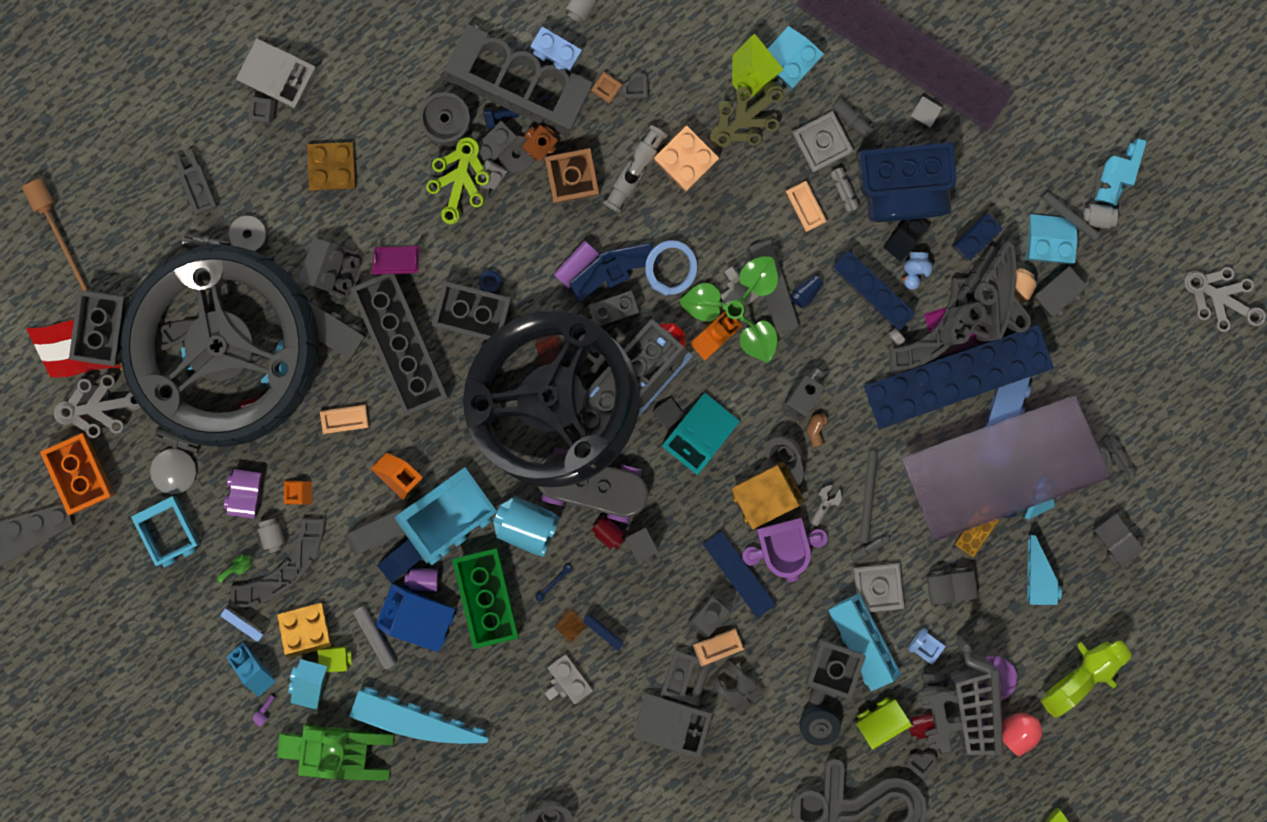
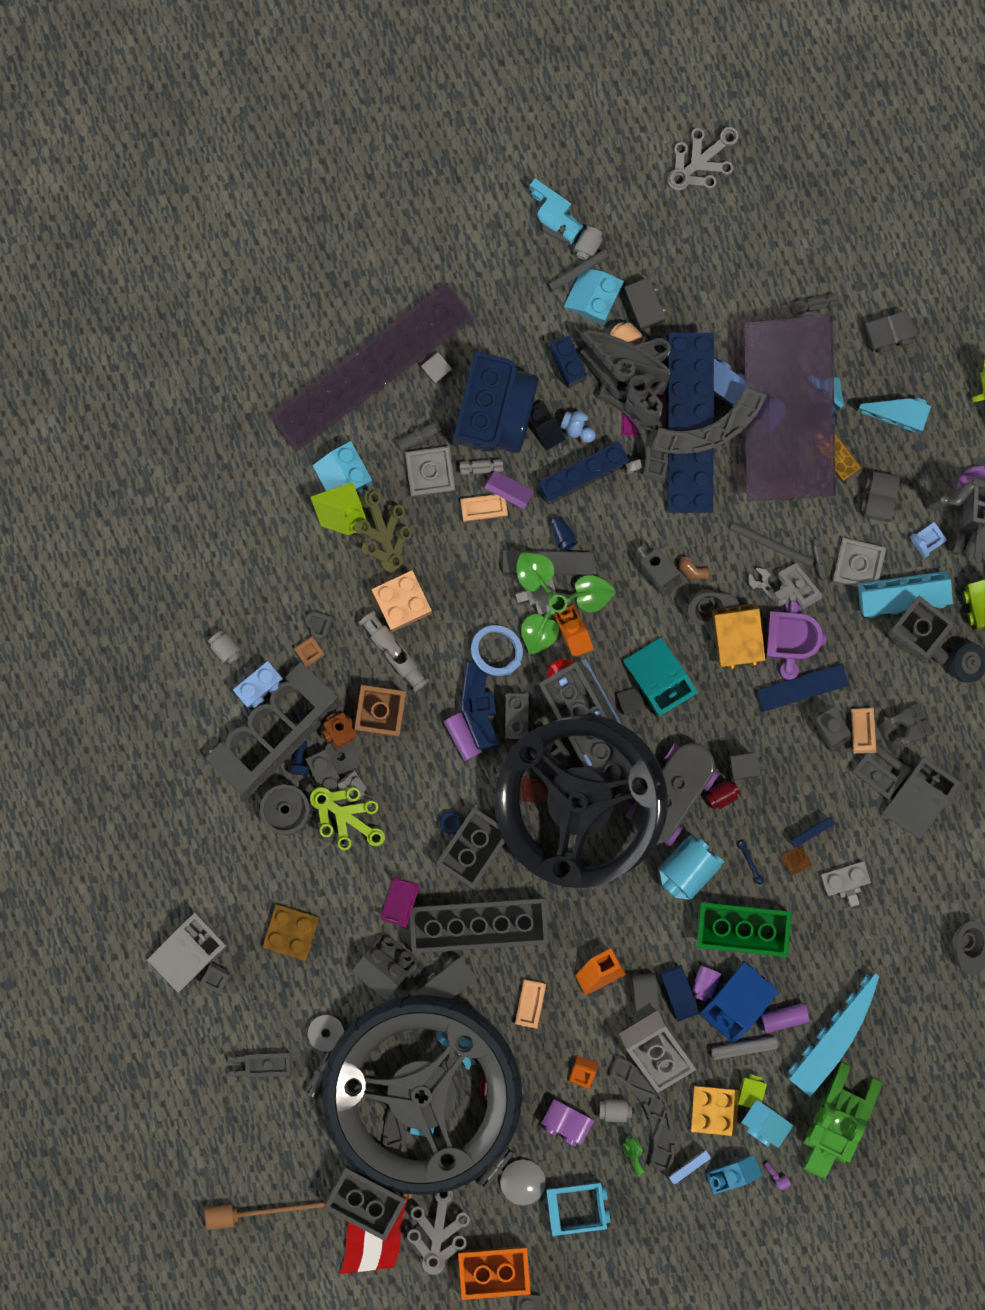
camera: 80 degrees left, 5 degrees down
(339, 555) = (657, 1051): none -> light grey slope
(416, 666) = (784, 1018): none -> medium lavender piece
(446, 516) = (654, 939): medium azure cylinder -> none
(831, 224) = (509, 489): none -> medium lavender tile
(833, 535) = (796, 587): none -> light grey hinge
(955, 404) = (714, 434): none -> dark grey tile

